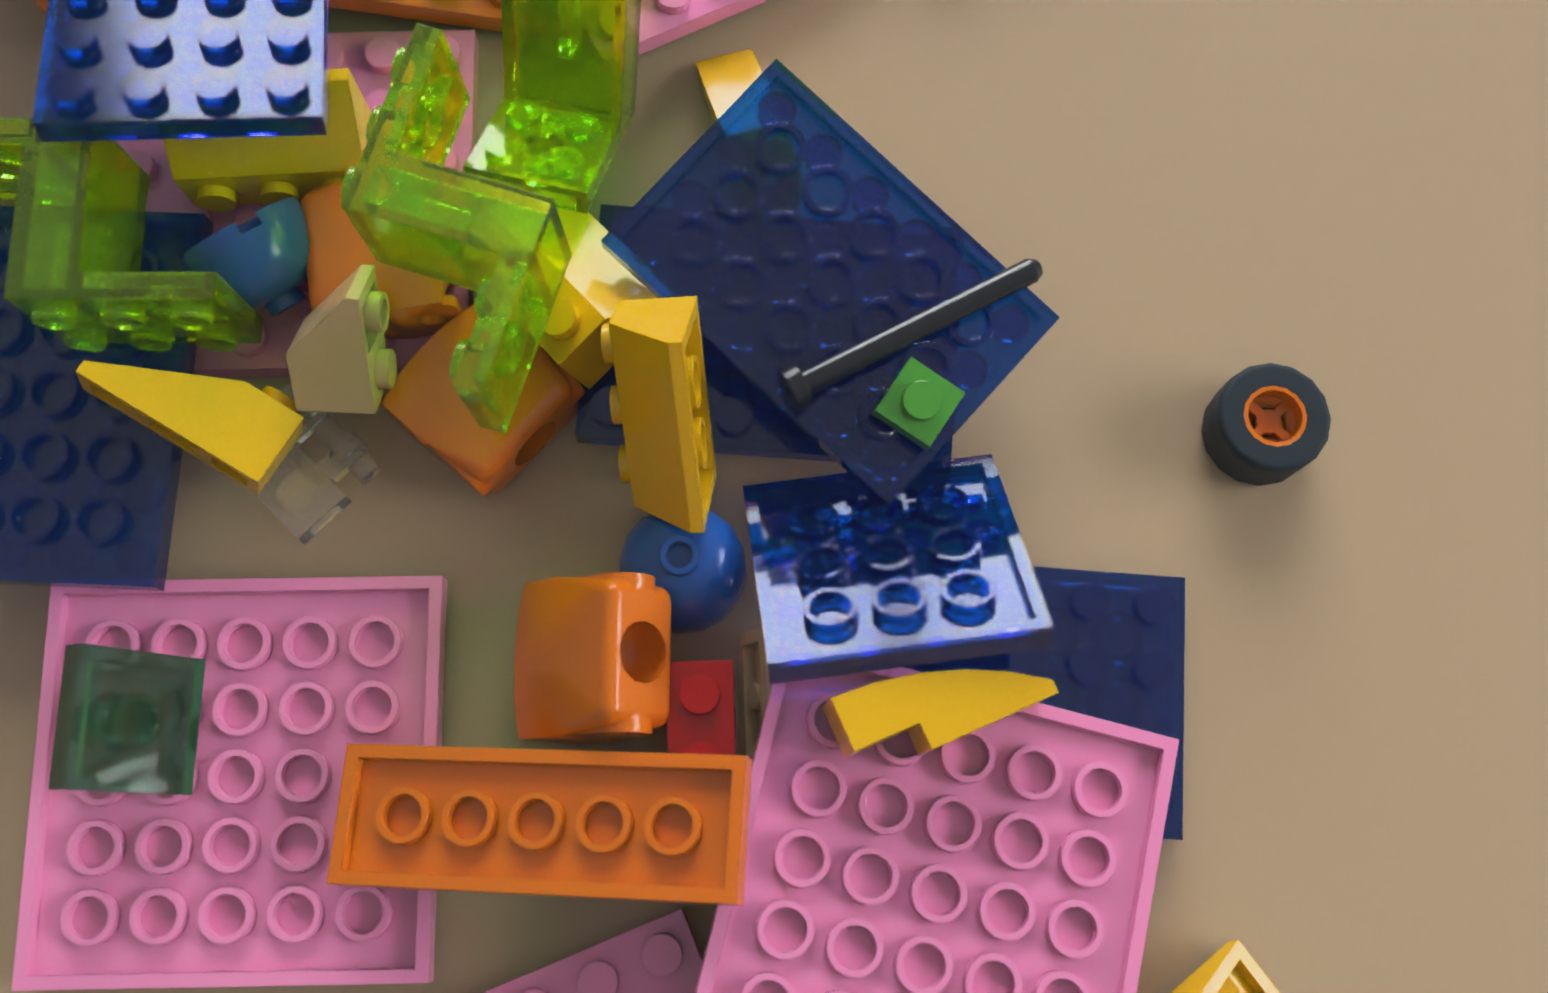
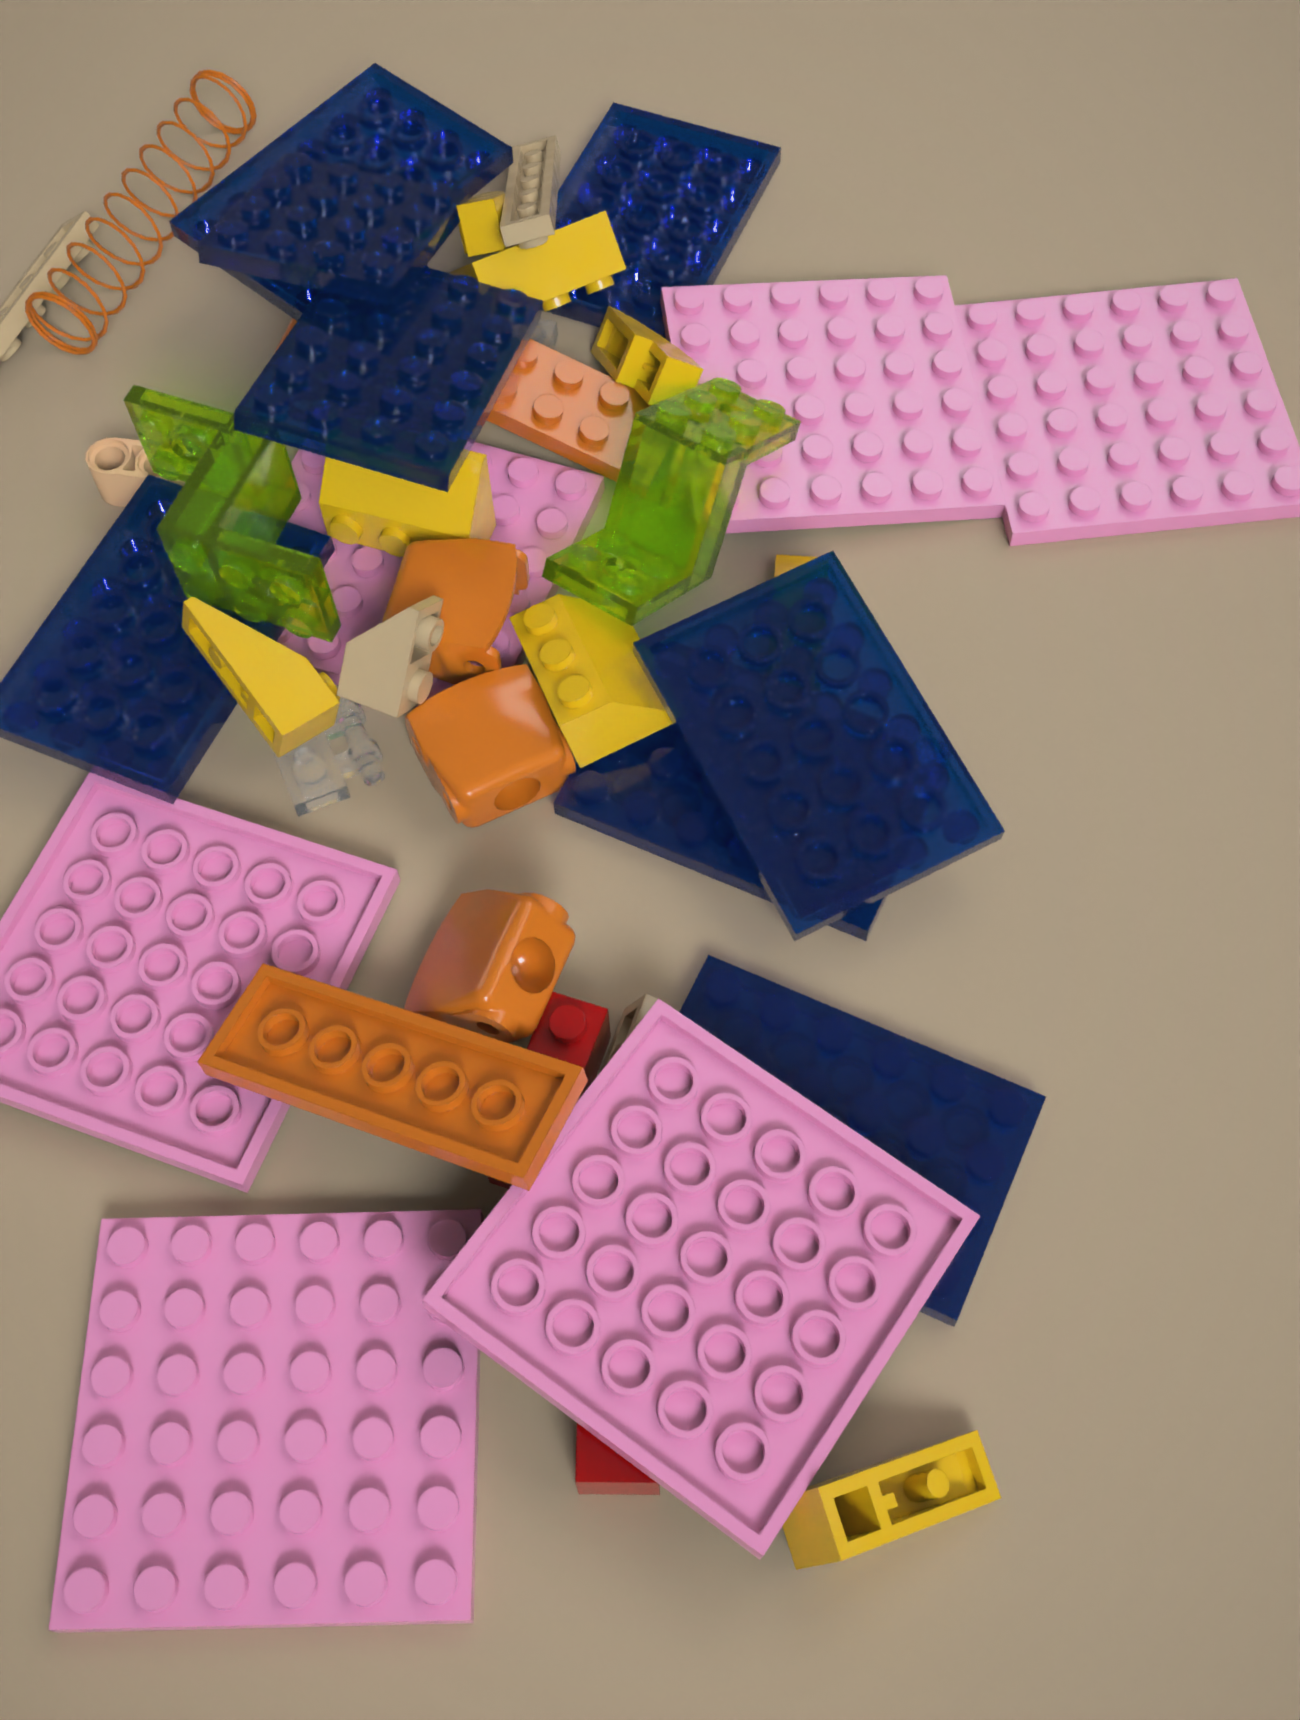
camera: 25 degrees right, 15 degrees down
(126, 721) = (101, 879): clear green tile -> none
(260, 257) = (361, 574): blue cylinder -> none
(457, 226) = (520, 591): clear neon green bracket -> none
(662, 408) = (632, 789): yellow slope -> none
(696, 569) = (613, 936): blue cylinder -> none
(802, 384) = (756, 805): black bar -> none
(895, 584) = (744, 978): clear blue plate -> none
(918, 403) = (850, 856): bright green plate -> none
(930, 707) = (763, 1092): yellow slope -> none
(1283, 407) = (1176, 970): black wheel -> none

